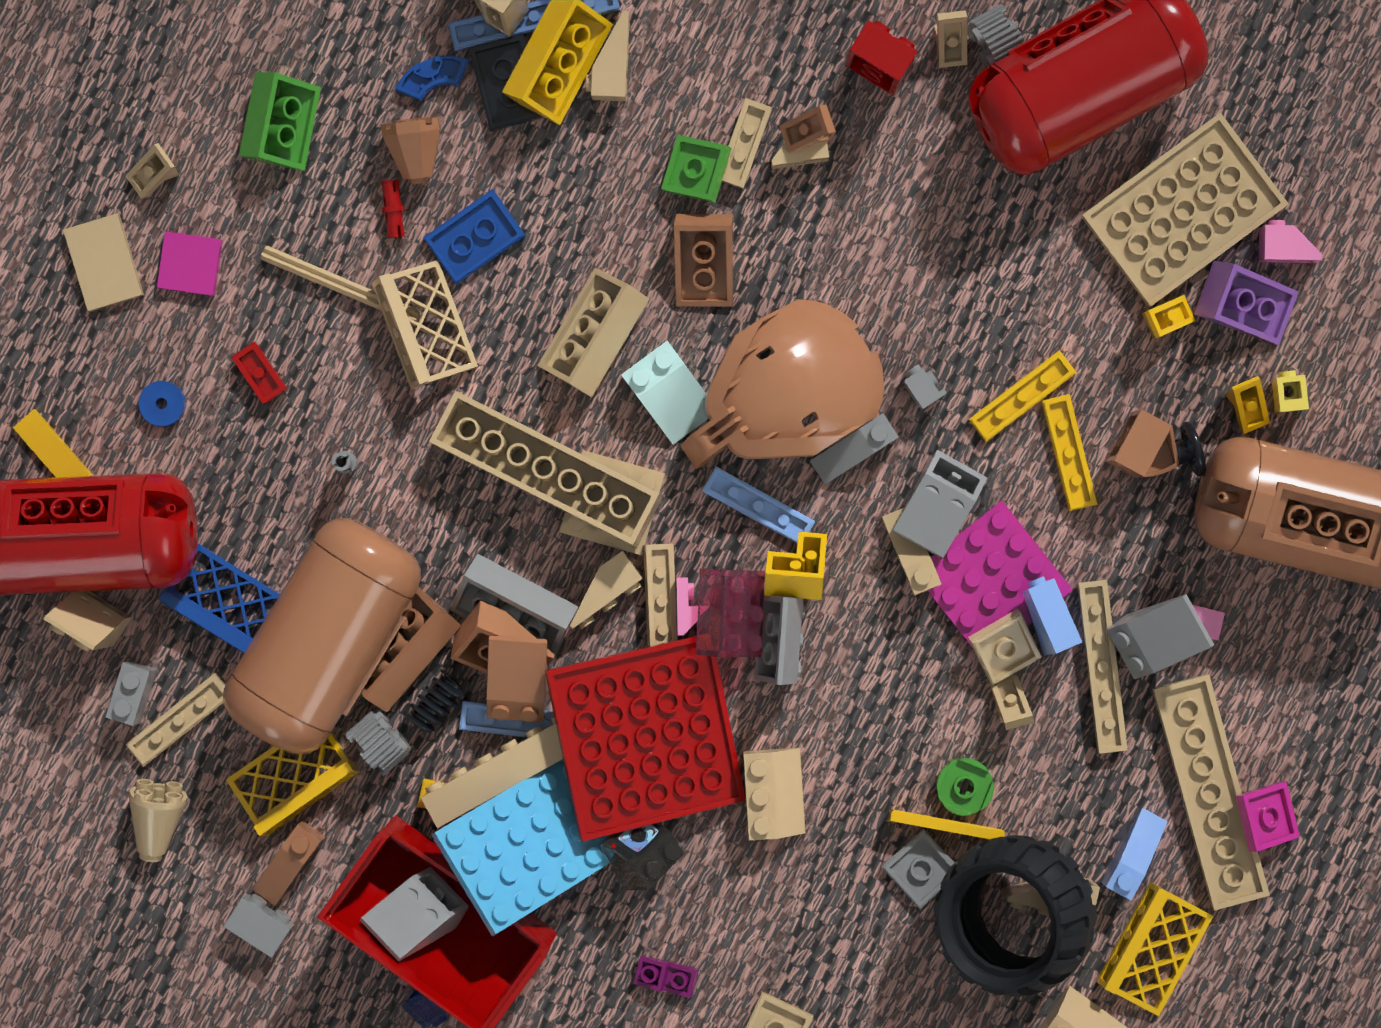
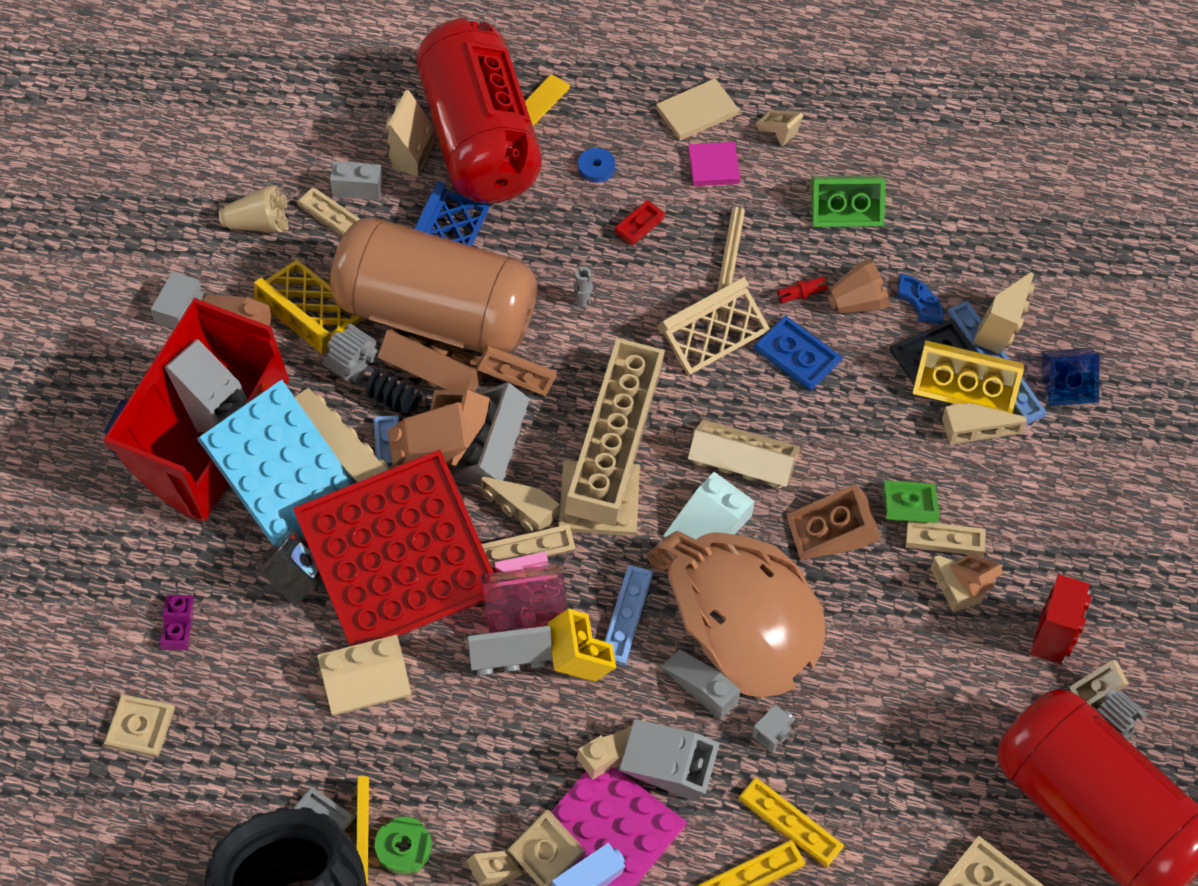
camera: 80 degrees right, 30 degrees down
(443, 561) = (516, 370): none -> nougat plate

